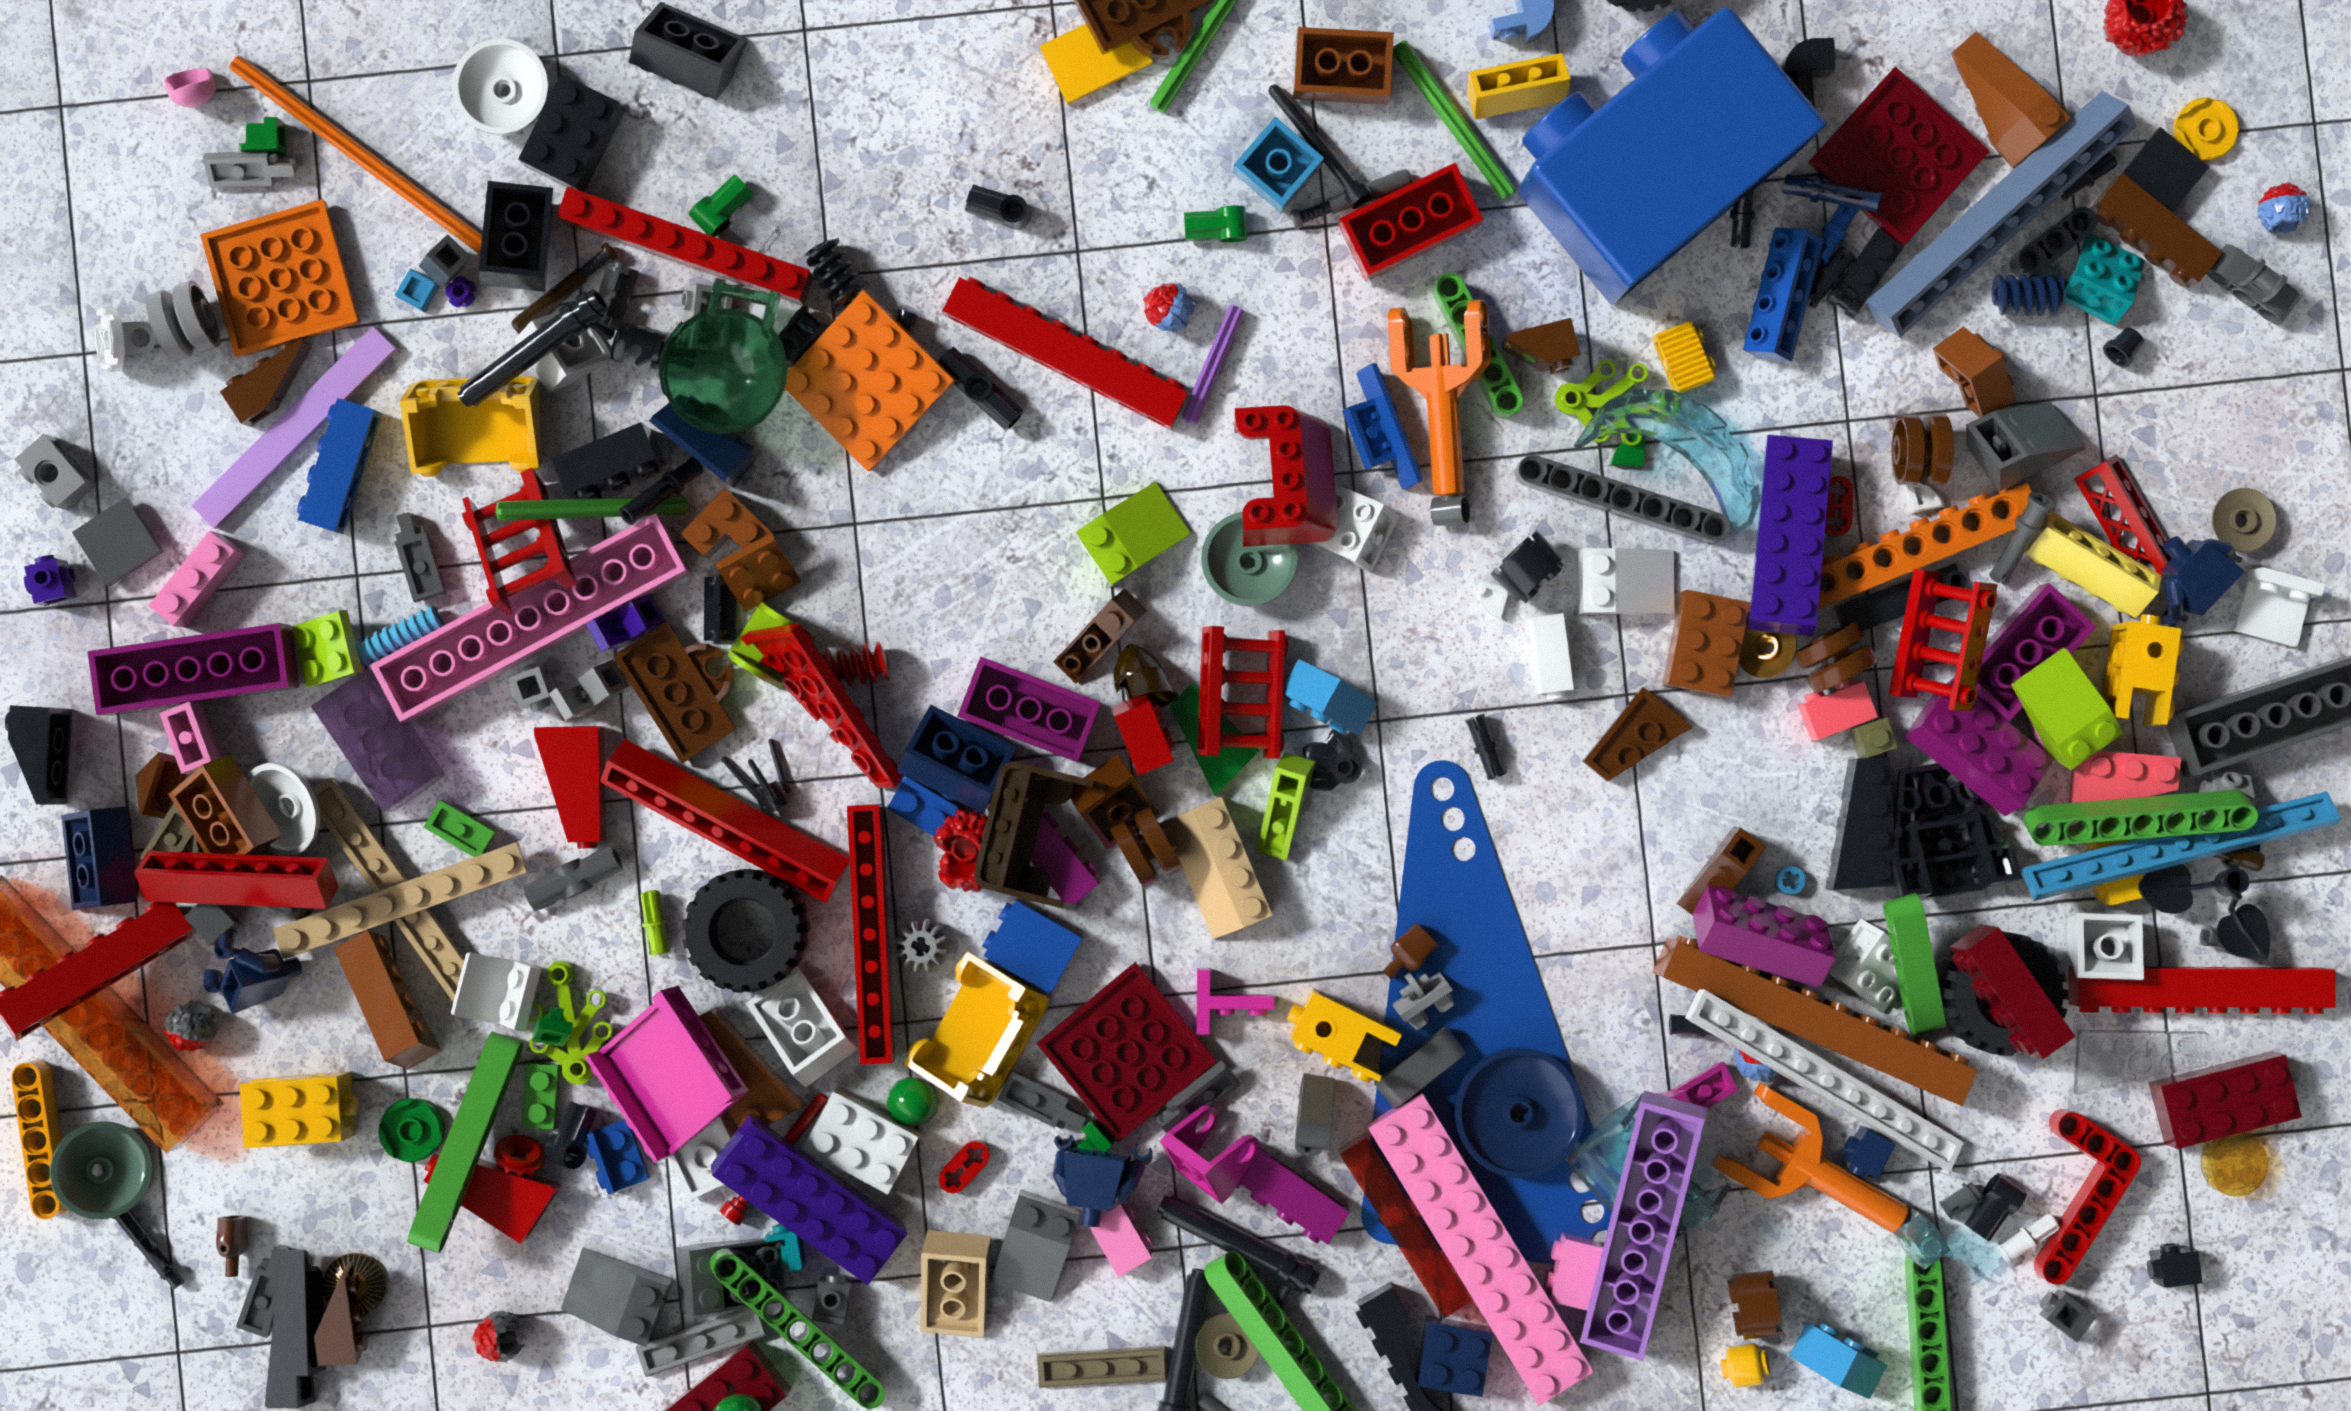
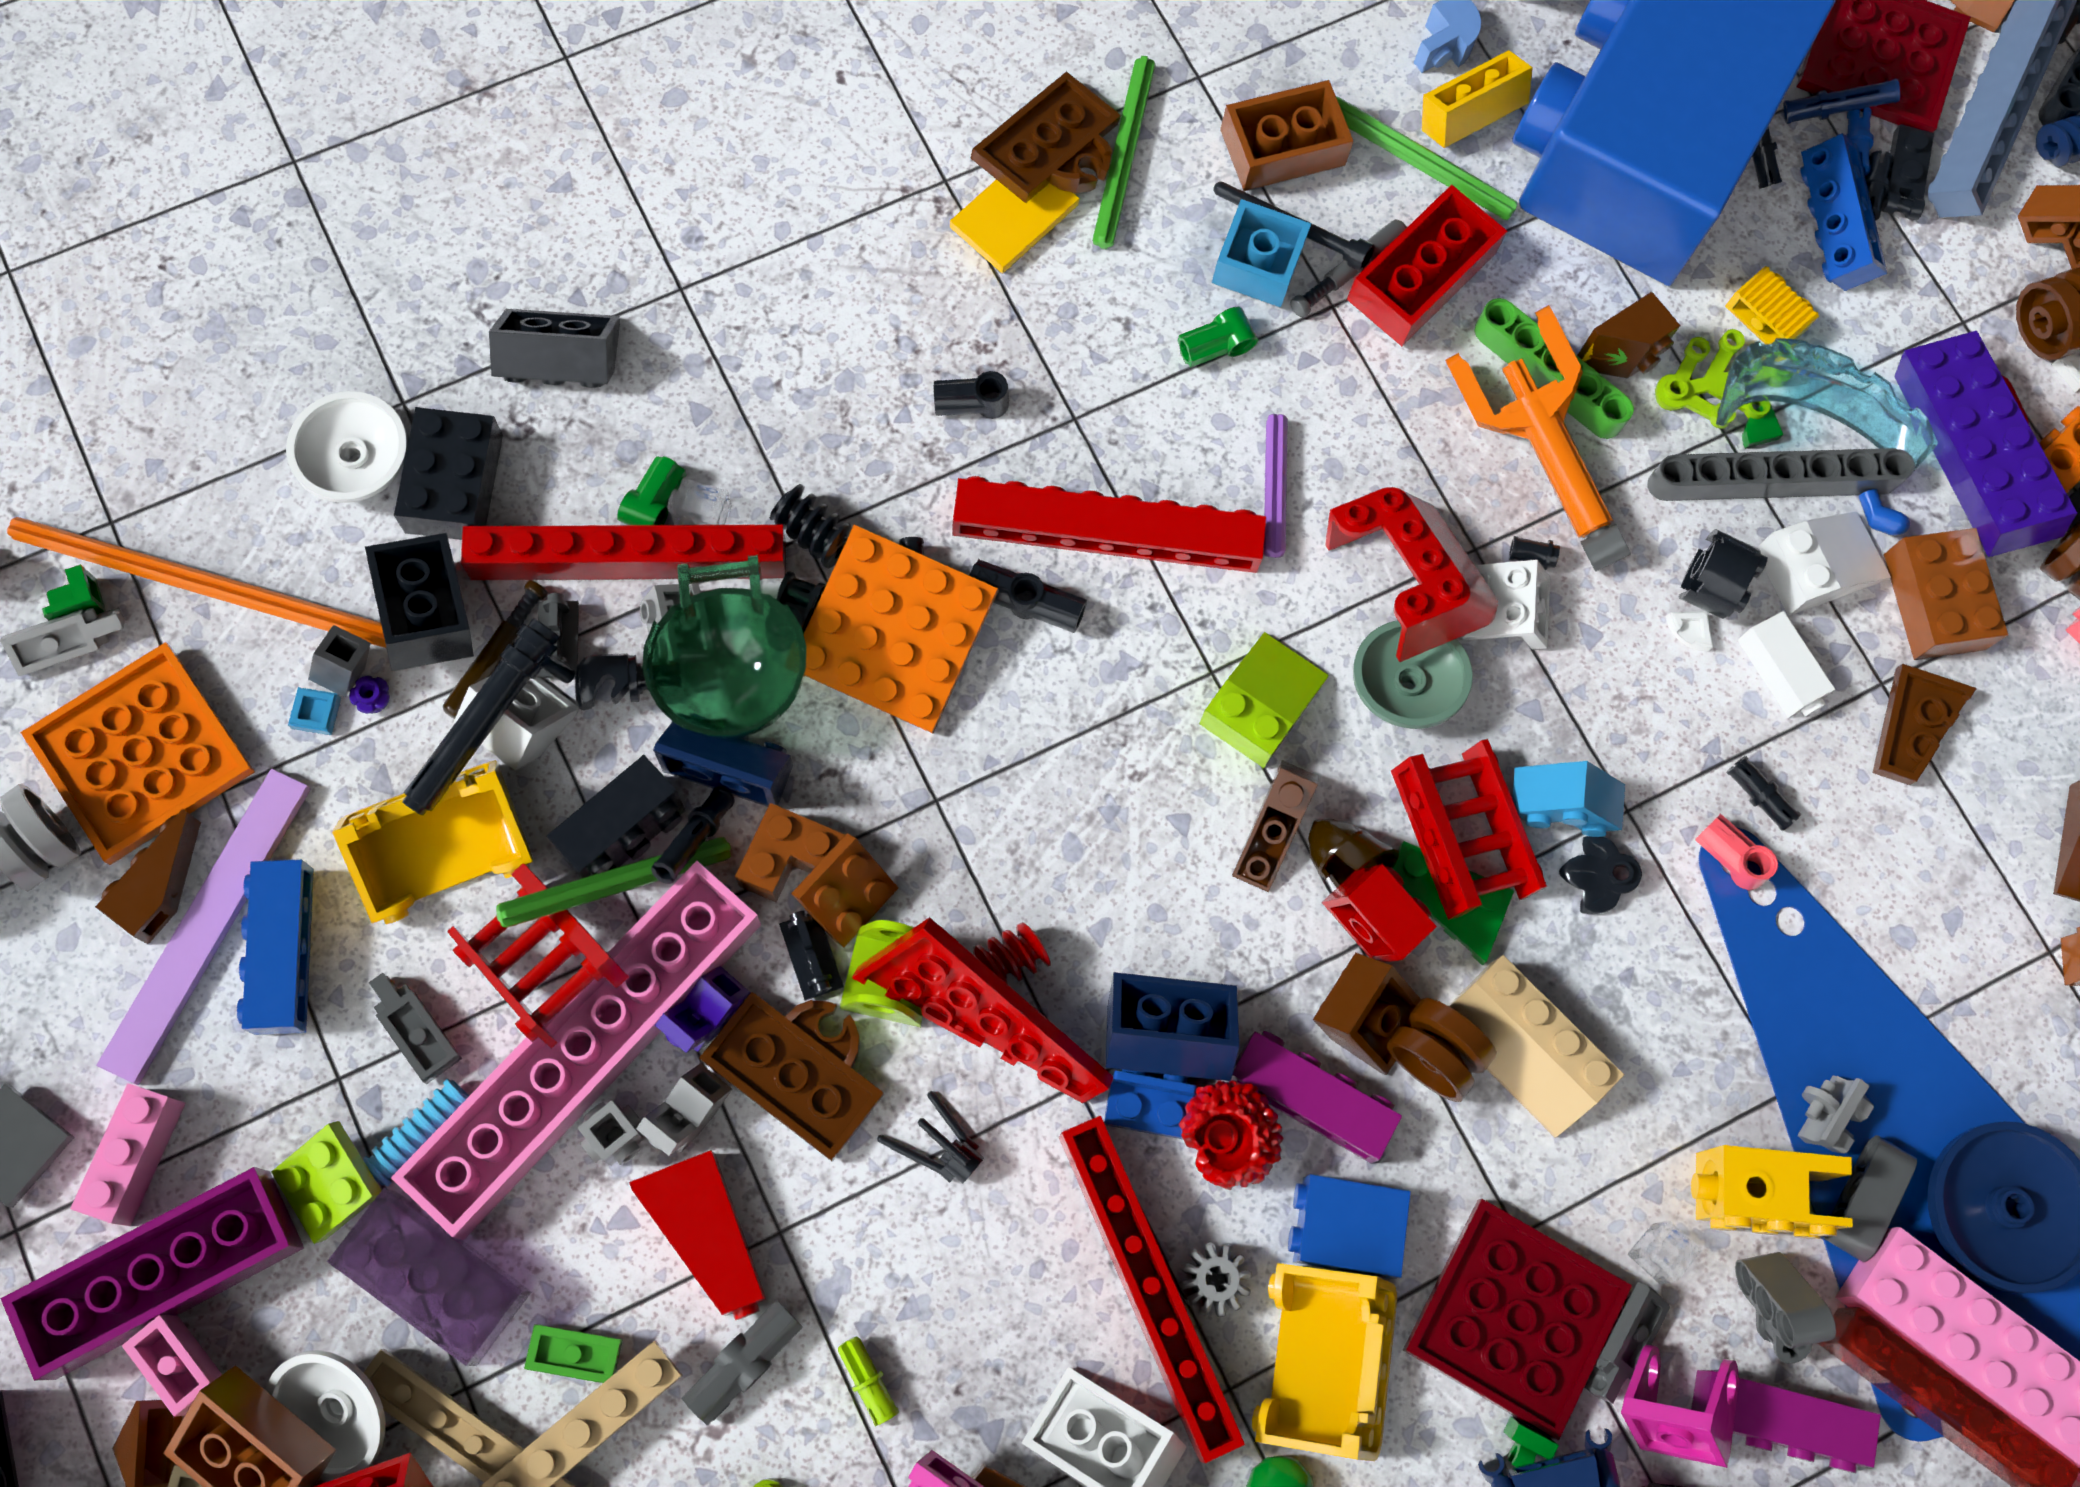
camera: 25 degrees left, 15 degrees down
(703, 939) = (1052, 1344): black tyre -> none
(724, 820) = (912, 1211): red brick -> none
(1013, 829) = (1270, 1036): dark brown windscreen -> none
(1029, 709) = (1233, 936): magenta brick -> none
(1040, 1102) = (1440, 1425): dark grey hinge -> none
(1168, 307) = (1205, 435): piece -> none
(1225, 1003) = (1585, 1215): dark pink bracket -> none
(1285, 805) = (1574, 943): lime slope -> none
(1379, 431) = (1491, 488): blue bracket -> none
(1394, 492) = (1526, 549): none -> black pin
(1410, 951) = (1793, 1060): reddish brown piece -> none
(1439, 780) = (1734, 850): none -> coral piece
(1690, 563) = (1881, 517): none -> blue arm
(1755, 659) = (2033, 577): pearl gold dish -> none

